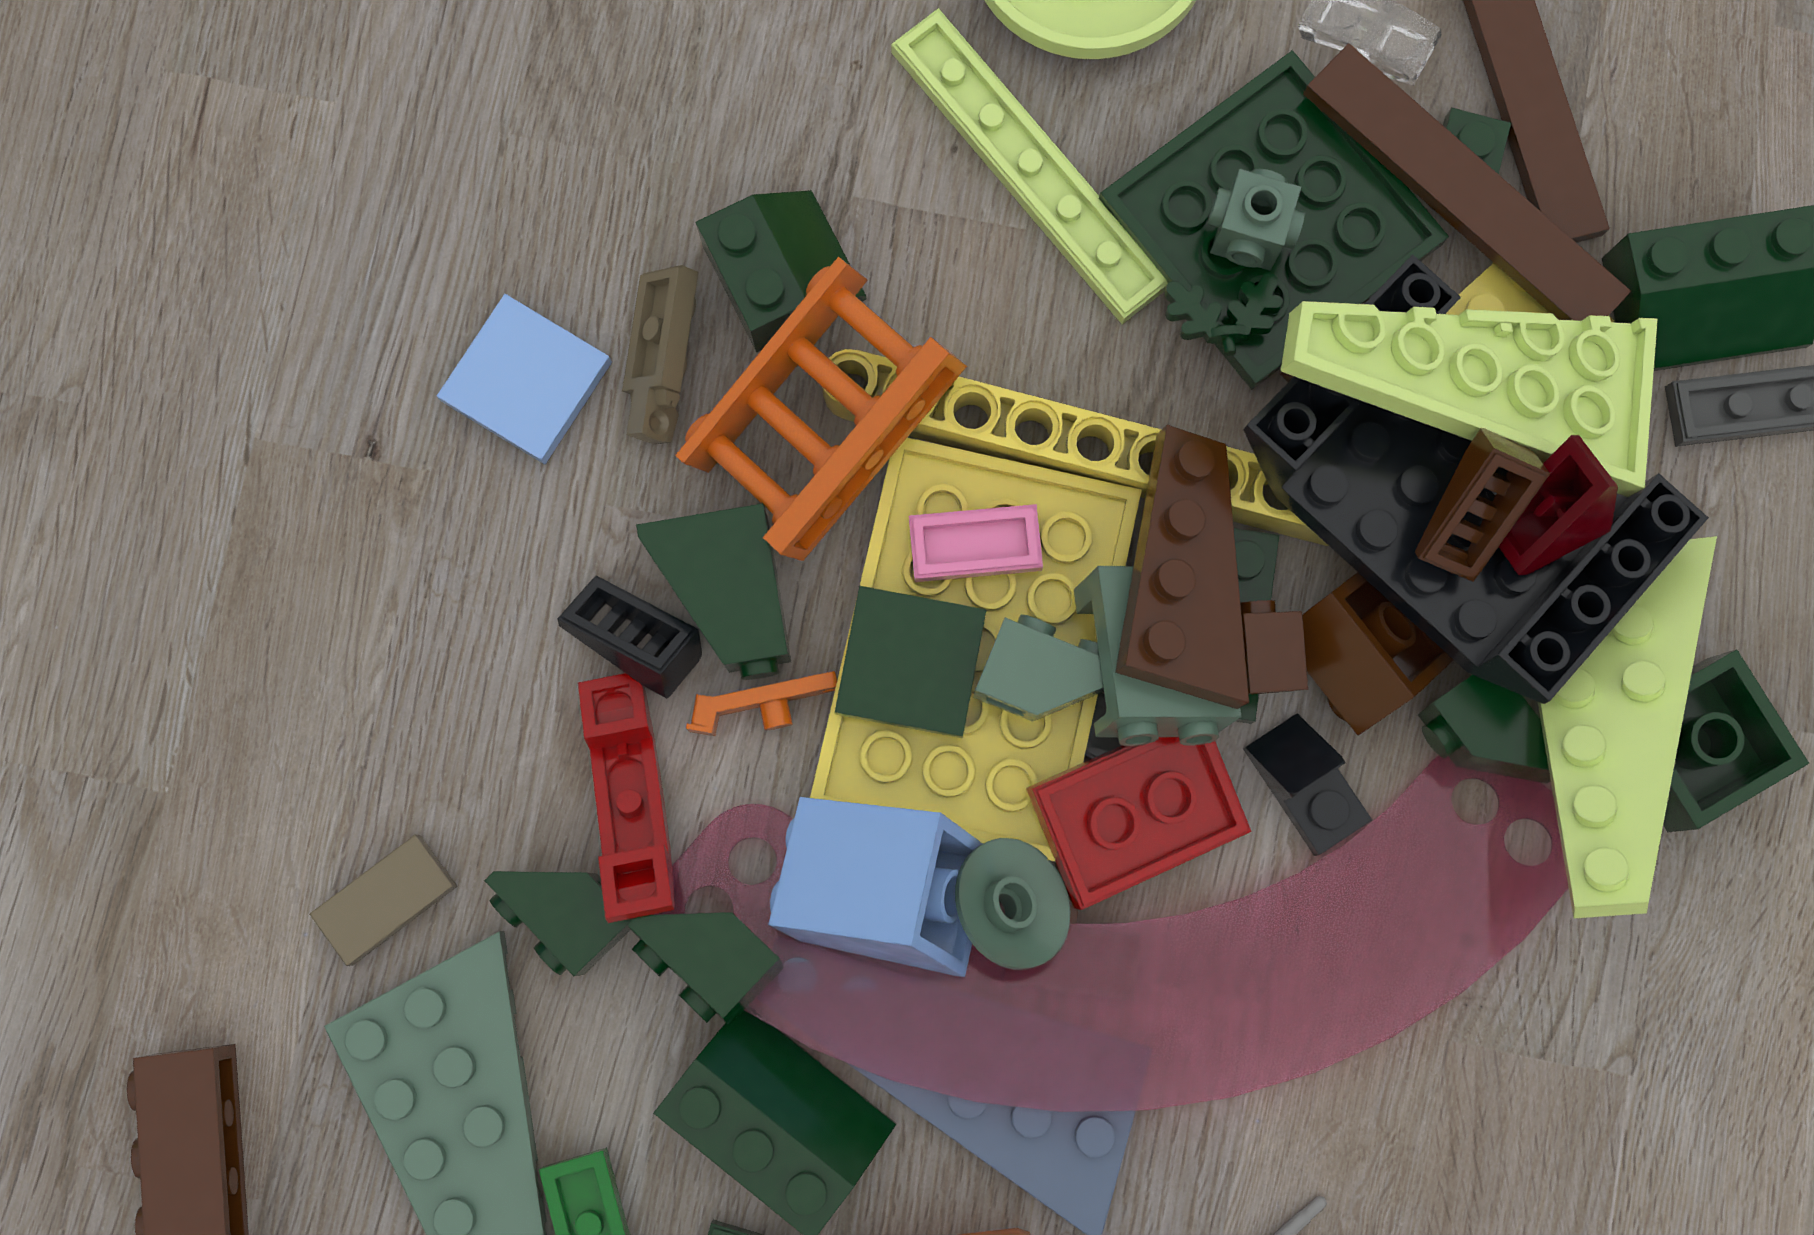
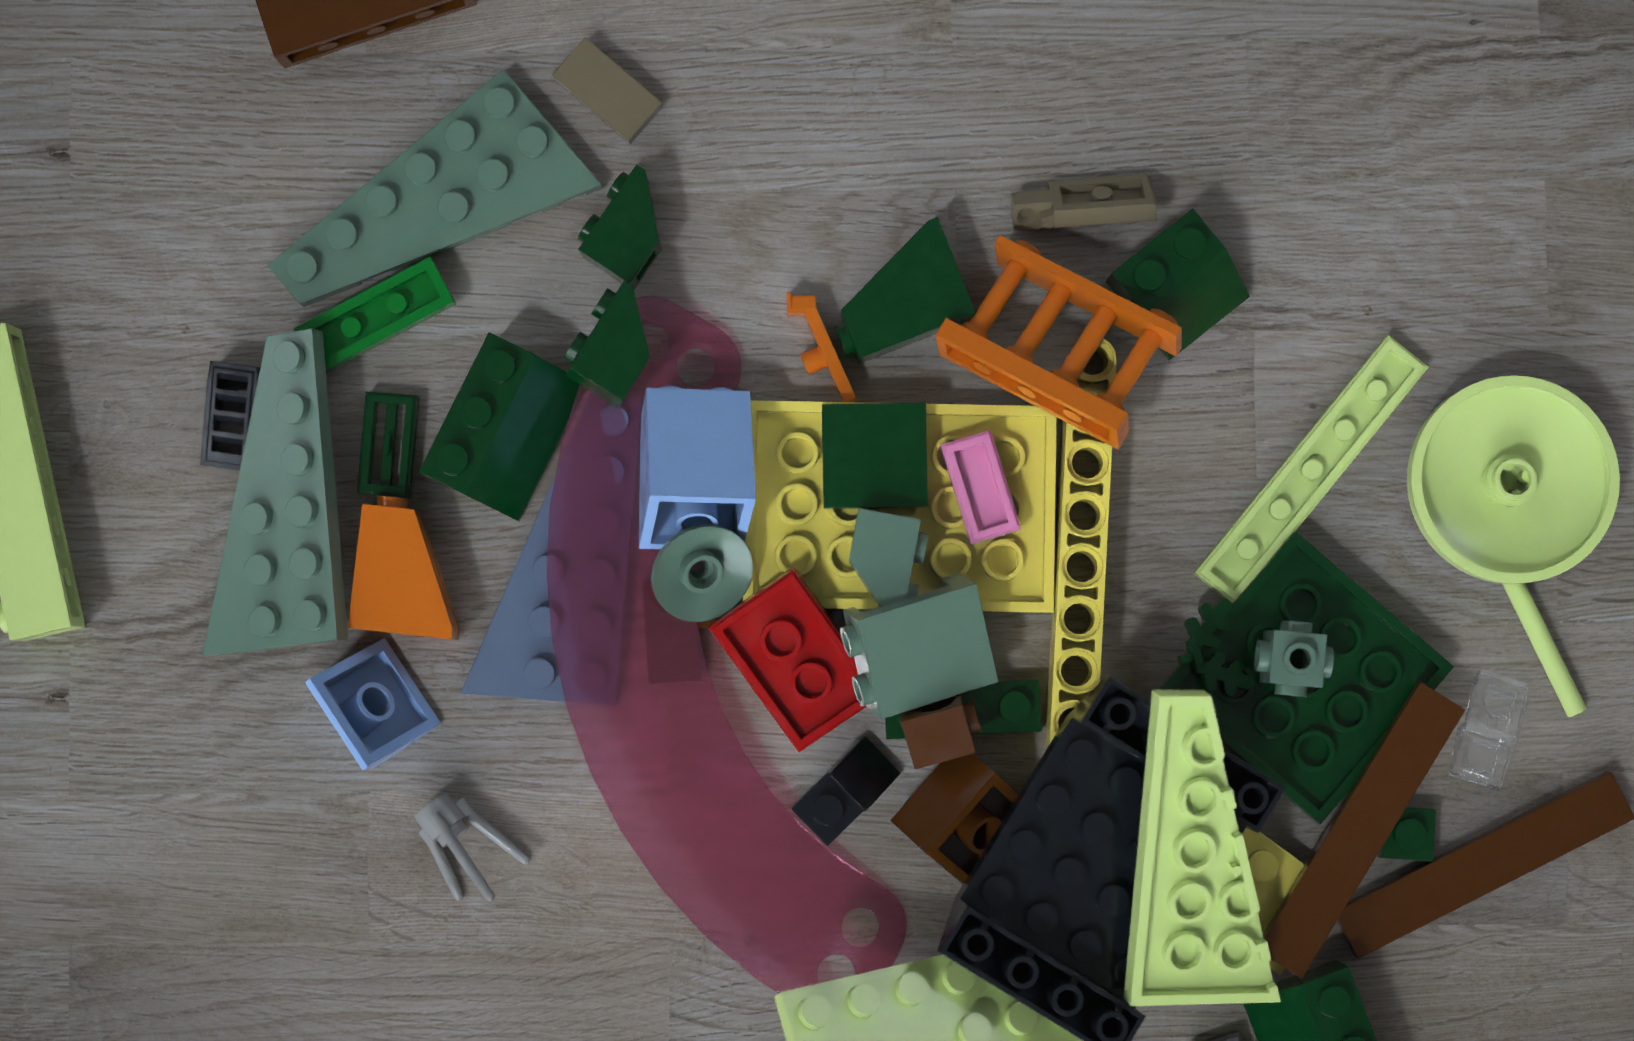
camera: 80 degrees right, 5 degrees up
(524, 378) = (1041, 101): light blue tile -> none
(628, 798) = (725, 259): red slope -> none
(661, 662) = (838, 263): black slope -> none
(1184, 584) = (975, 655): reddish brown wing -> none
(1474, 473) = (1117, 879): reddish brown slope -> none
(1487, 731) = (915, 918): dark green slope -> none
(1566, 512) = (1092, 931): dark red slope -> none

